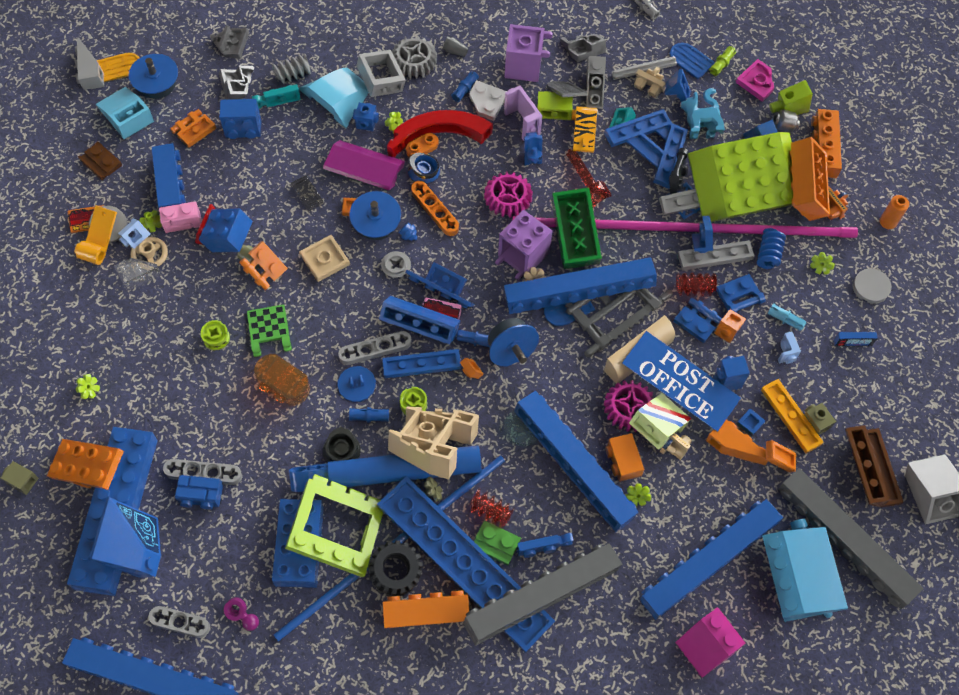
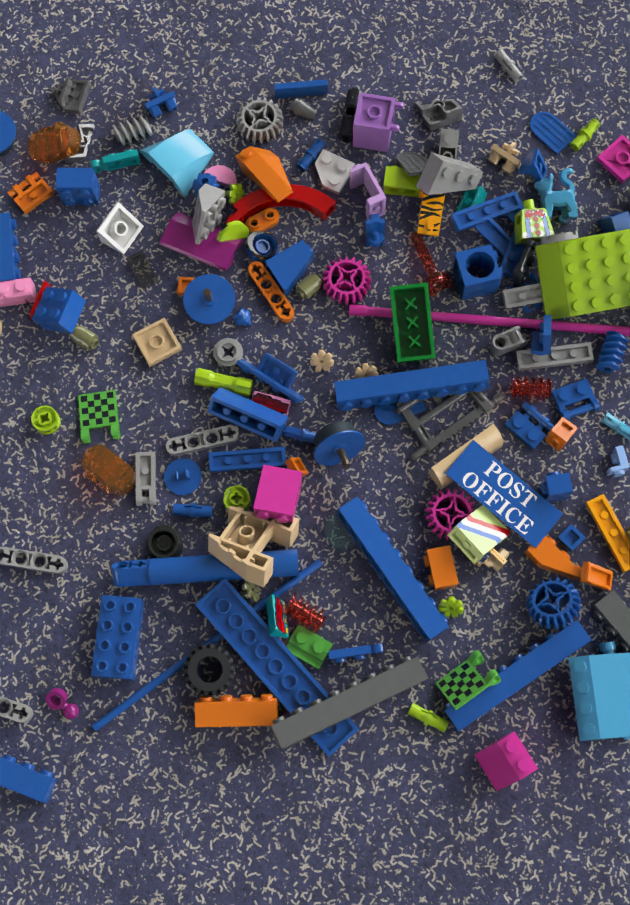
camera: 10 degrees right, 10 degrees up
(199, 491) = (25, 580): blue brick -> none
(216, 81) = (54, 143): none -> clear orange brick
(267, 260) = (99, 344): orange plate -> none
(282, 156) = (119, 229): none -> white slope
(315, 42) = (167, 99): none -> blue hips
(319, 386) = (146, 478): none -> light grey plate
(326, 550) = (143, 649): lime hinge -> none
(369, 135) = (207, 211): none -> light grey slope
(376, 87) = (224, 153): light grey window -> none
(383, 106) = (224, 175): none -> bright pink tile
(383, 290) = (235, 384): none -> lime axle
(395, 153) = (233, 231): none -> lime tile
(422, 100) = (266, 171): none -> orange wedge
(450, 29) = (301, 88): none -> blue tile
(452, 183) = (290, 265): none -> blue slope
(456, 390) = (278, 493): none -> dark pink slope
(461, 513) = (276, 617): none -> slope
(471, 201) = (308, 286): none -> olive brick
(489, 268) = (321, 361): none -> tan plant
(499, 51) = (346, 127): none -> black piece
(524, 243) = (358, 338): medium lavender container -> none
(598, 96) = (448, 175): none -> light grey wedge
(625, 606) = (428, 717): none -> lime pin
(630, 71) = (500, 140): light grey axle -> none
(630, 193) = (482, 257): none -> blue brick
(661, 566) = (465, 681): none -> bright green flag
(672, 243) = (510, 339): none -> light grey piece
(682, 135) = (531, 223): none -> torso
(710, 141) = (559, 237): none -> light grey tile
(741, 484) = (547, 613): none -> blue gear

